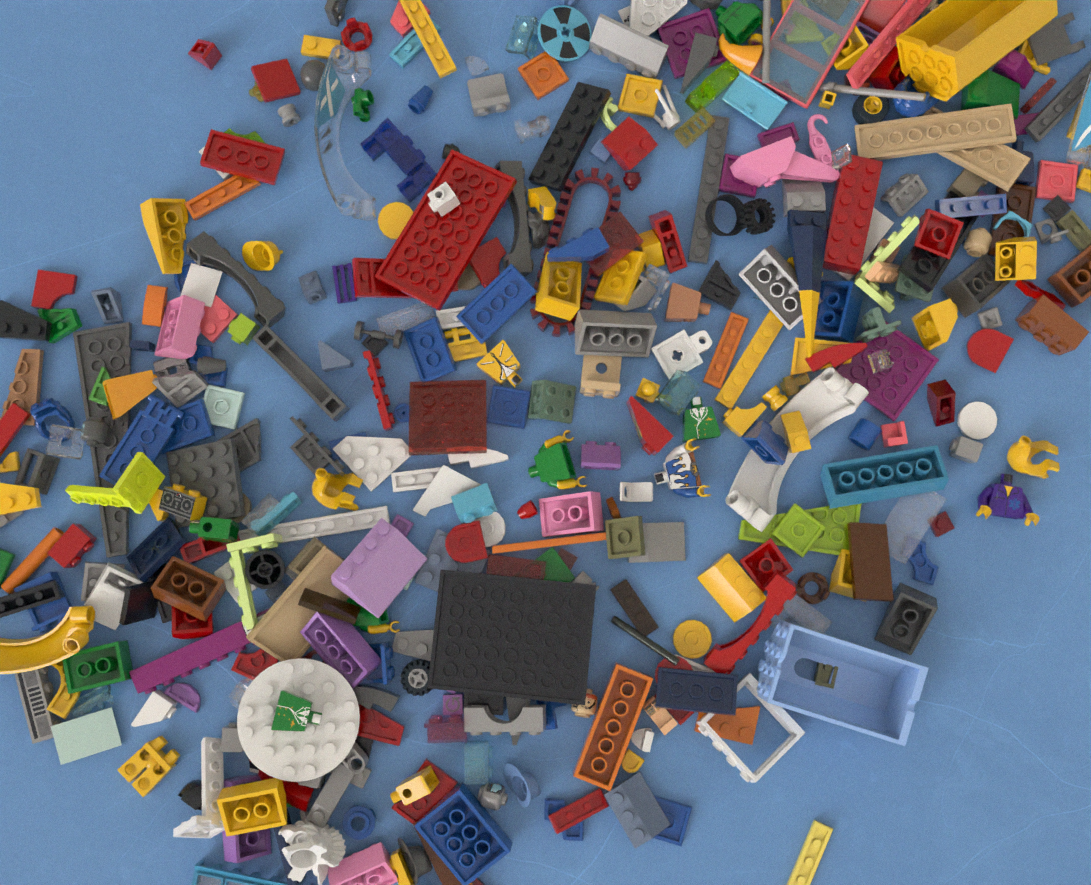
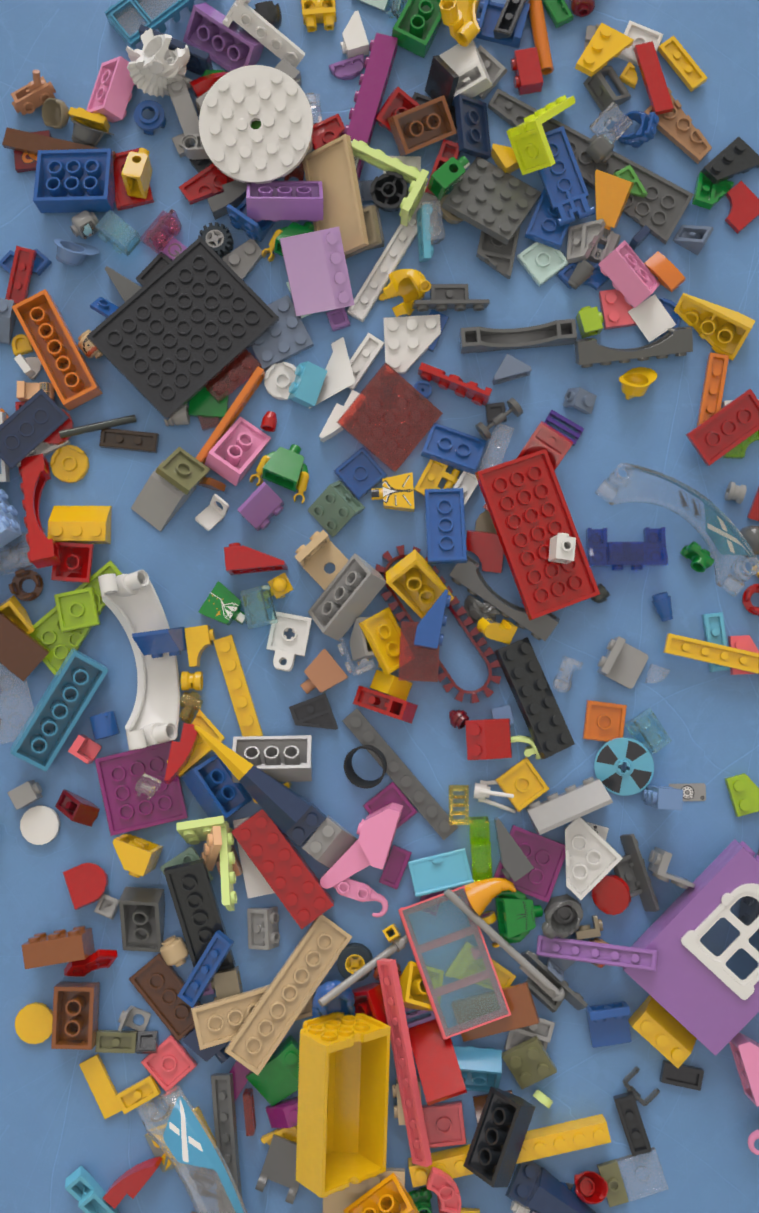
camera: 135 degrees right, 0 degrees up
(182, 502) = (489, 169): brick -> none
(253, 806) = (221, 42): yellow slope -> none
(294, 713) = (260, 120): green torso -> none
(329, 606) = (320, 212): dark brown tile -> none
(393, 219) = (582, 506): yellow tile -> none
(466, 543) = (282, 354): red tile -> none
(480, 719) = (143, 256): light grey arch -> none
(682, 472) = (196, 559): torso -> none
(725, 350) = (262, 676): orange tile -> none
(749, 219) = (336, 796): black tyre -> none
(795, 432) = (151, 671): yellow slope -> none
(841, 157) = (333, 898): clear tile -> none
(875, 325) = (173, 803): sand green bracket -> none
(937, 233) = (203, 916): red slope -> none
(1012, 216) = (153, 1002): medium azure cap -> none
(1016, 259) = (134, 967): yellow slope -> none

